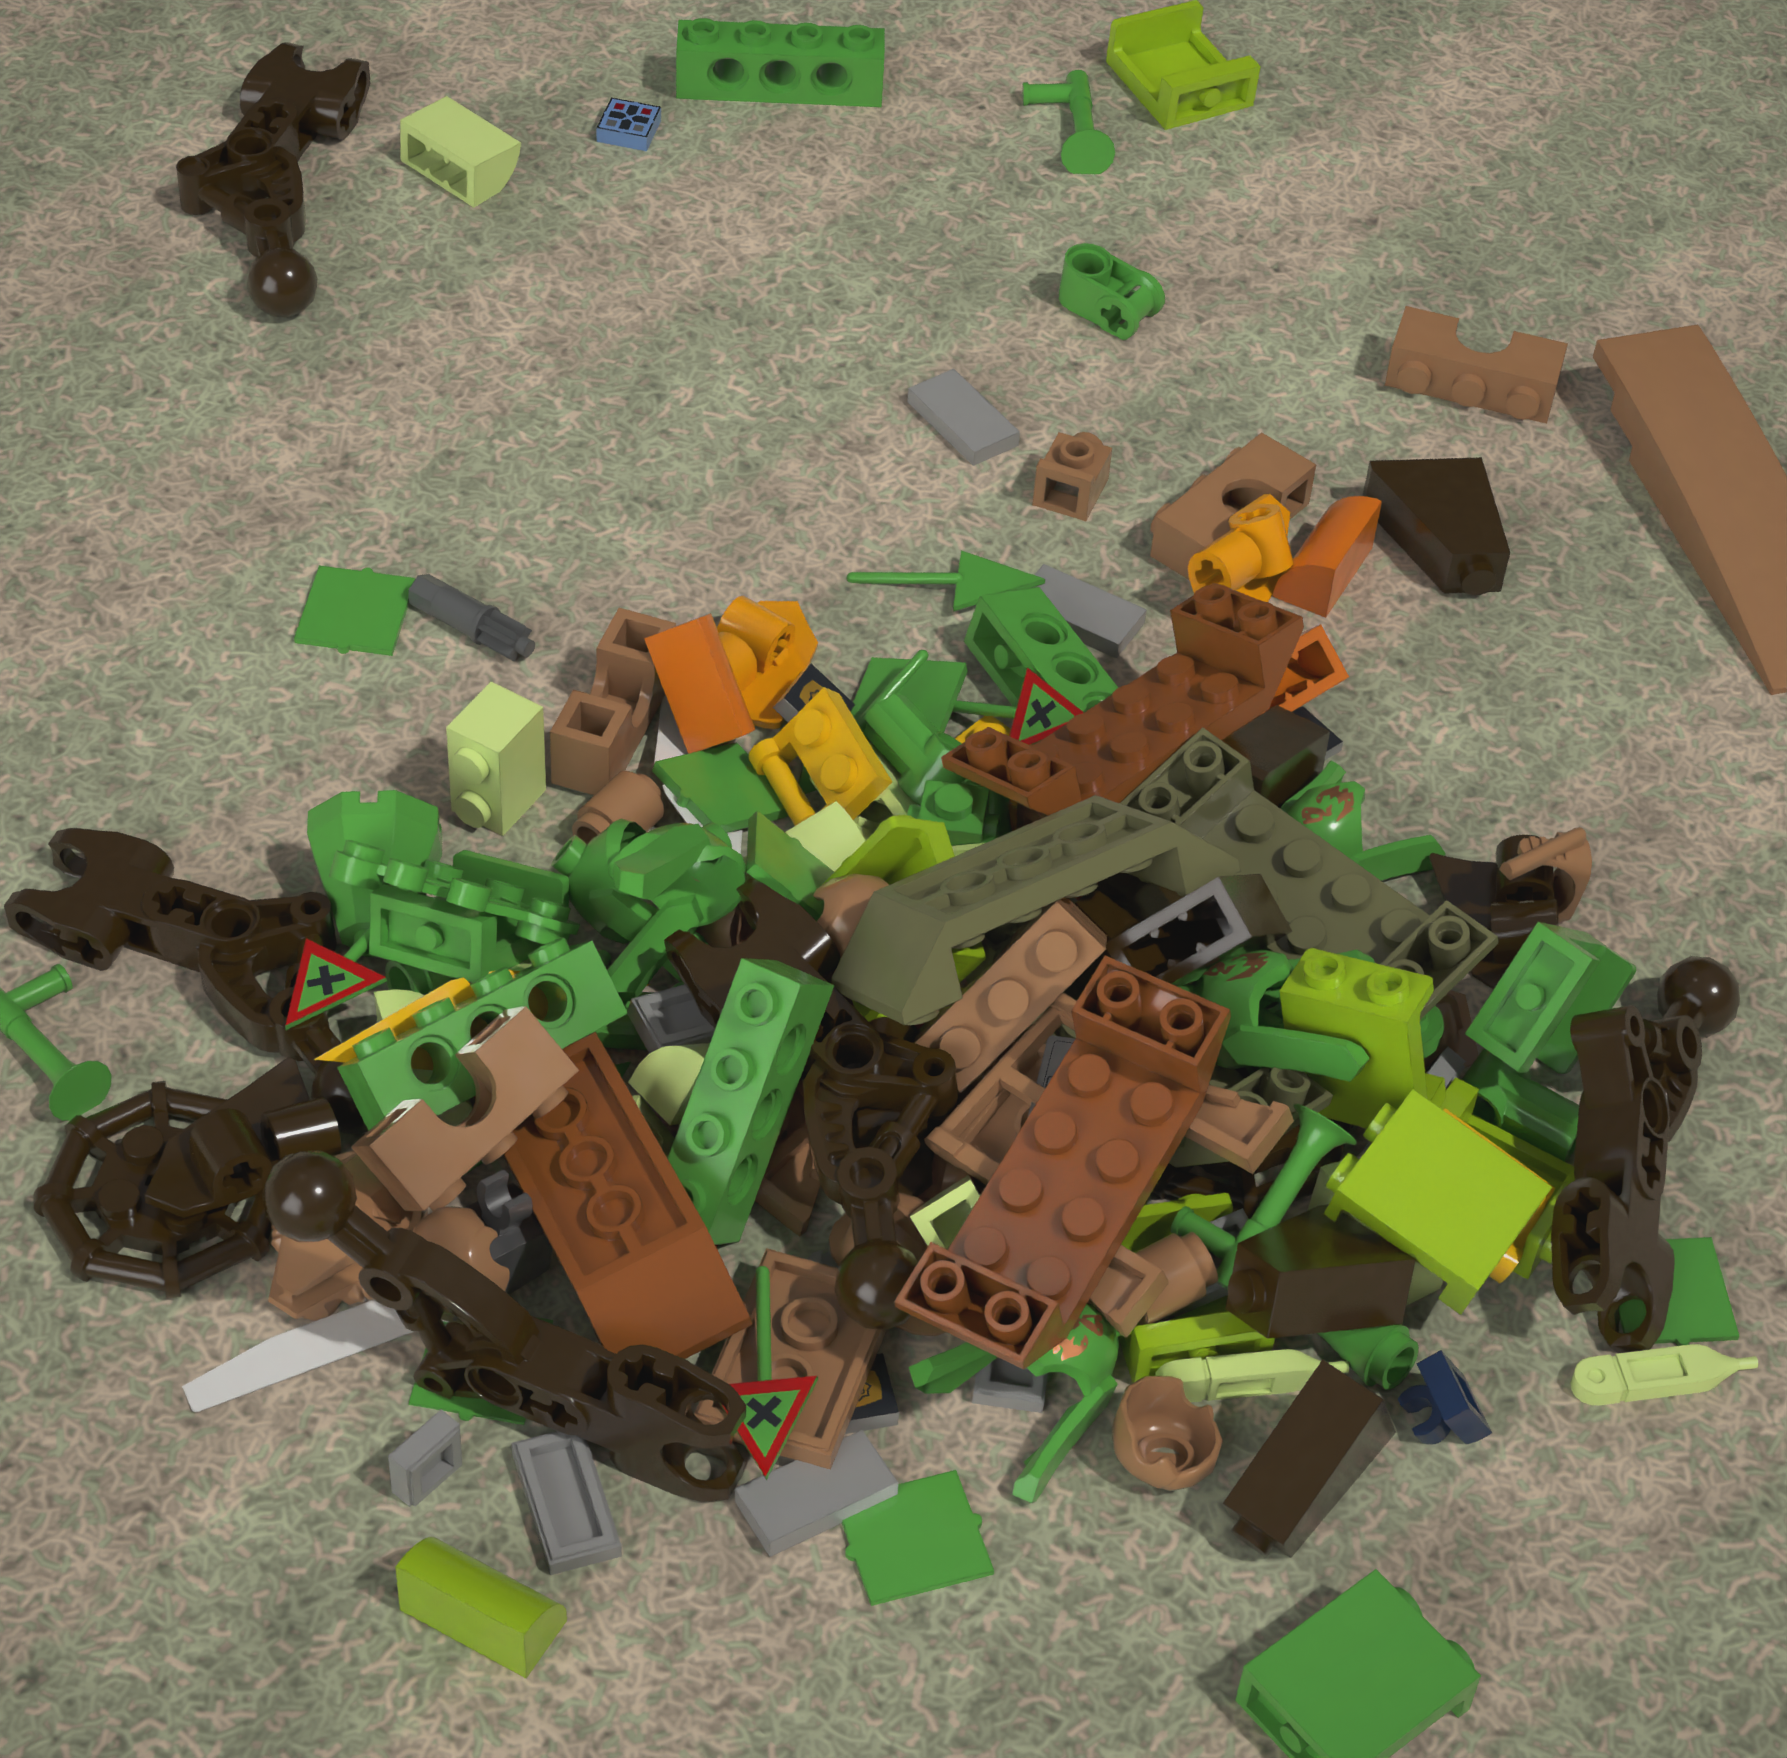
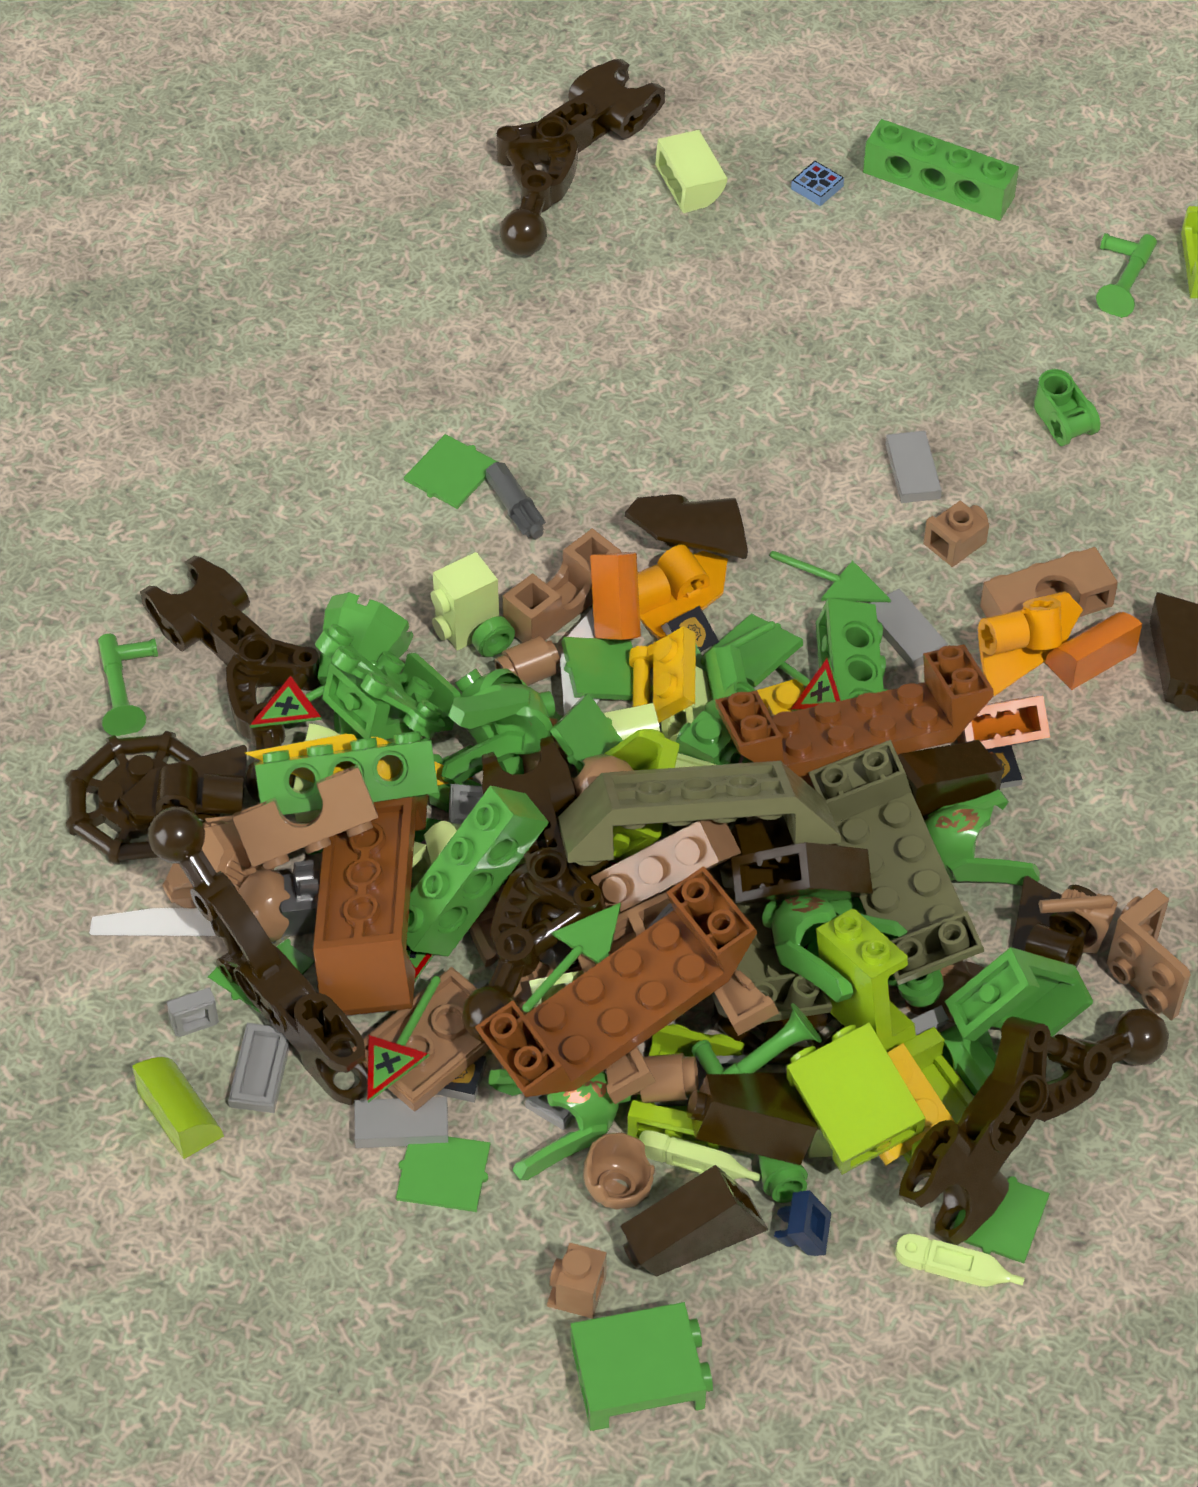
camera: 30 degrees right, 5 degrees up
(551, 797) = (493, 636): none -> bright green tile
(746, 563) = (697, 524): none -> dark brown panel
(967, 1123) = (588, 937): none -> bright green piece
(1205, 1605) = (578, 1280): none -> medium nougat brick
(1654, 897) = (1143, 961): none -> medium nougat bracket

